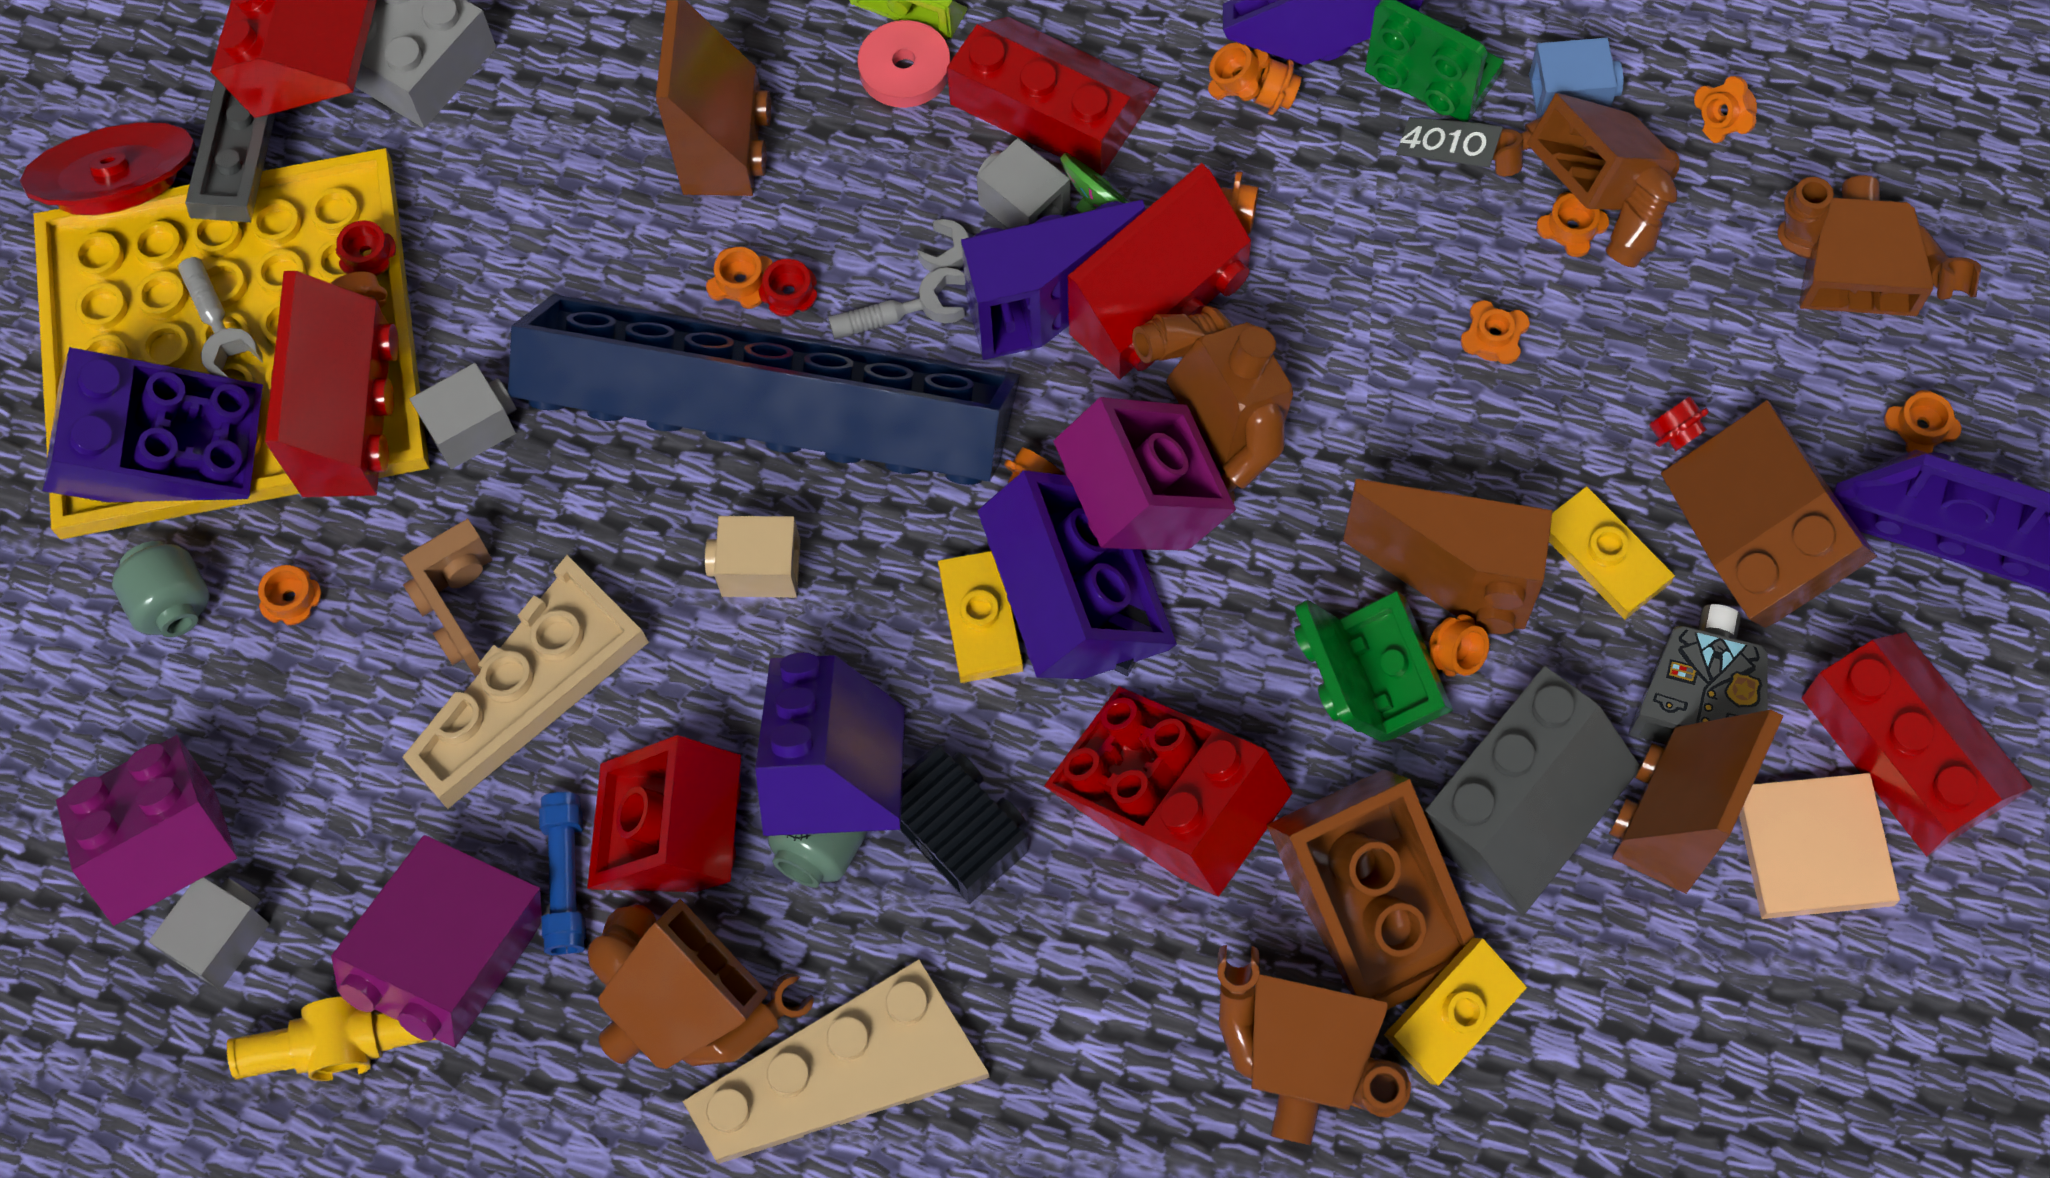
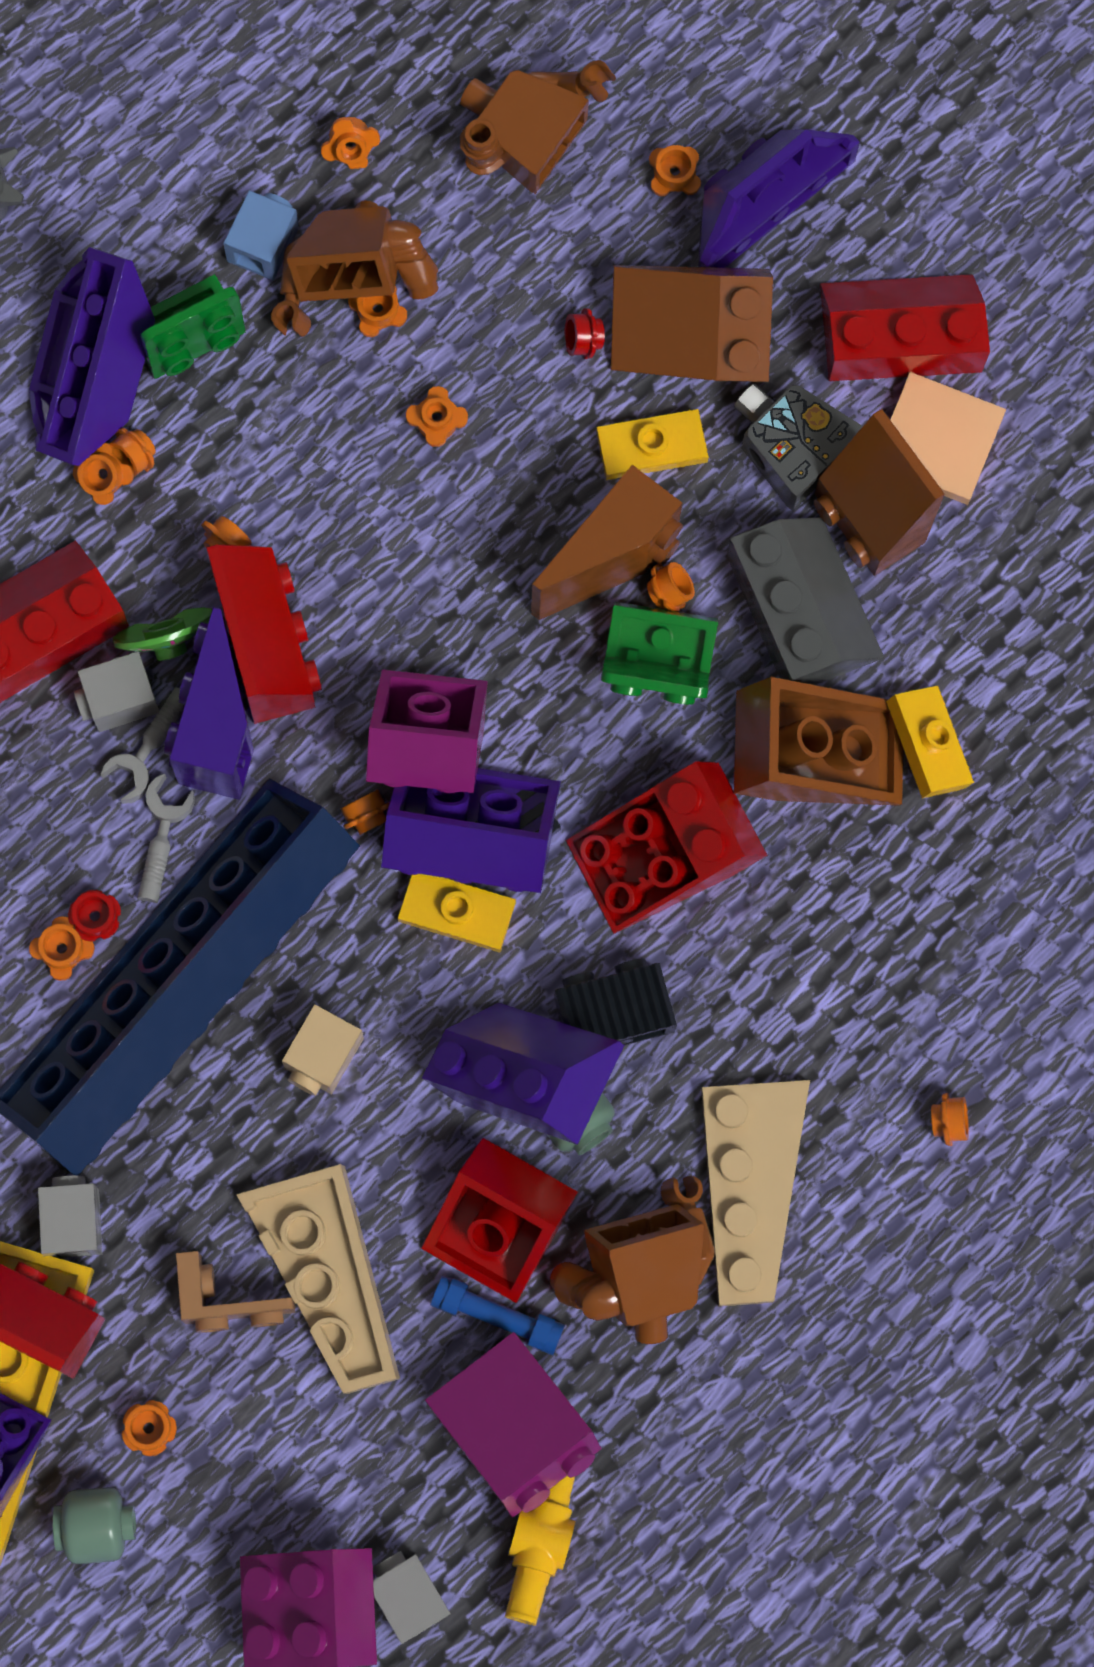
camera: 70 degrees left, 10 degrees up
(1228, 385) = (386, 630): dark orange torso -> none
(1306, 1047) = (912, 852): dark orange torso -> none
(1450, 141) = (256, 354): dark grey sticker -> none

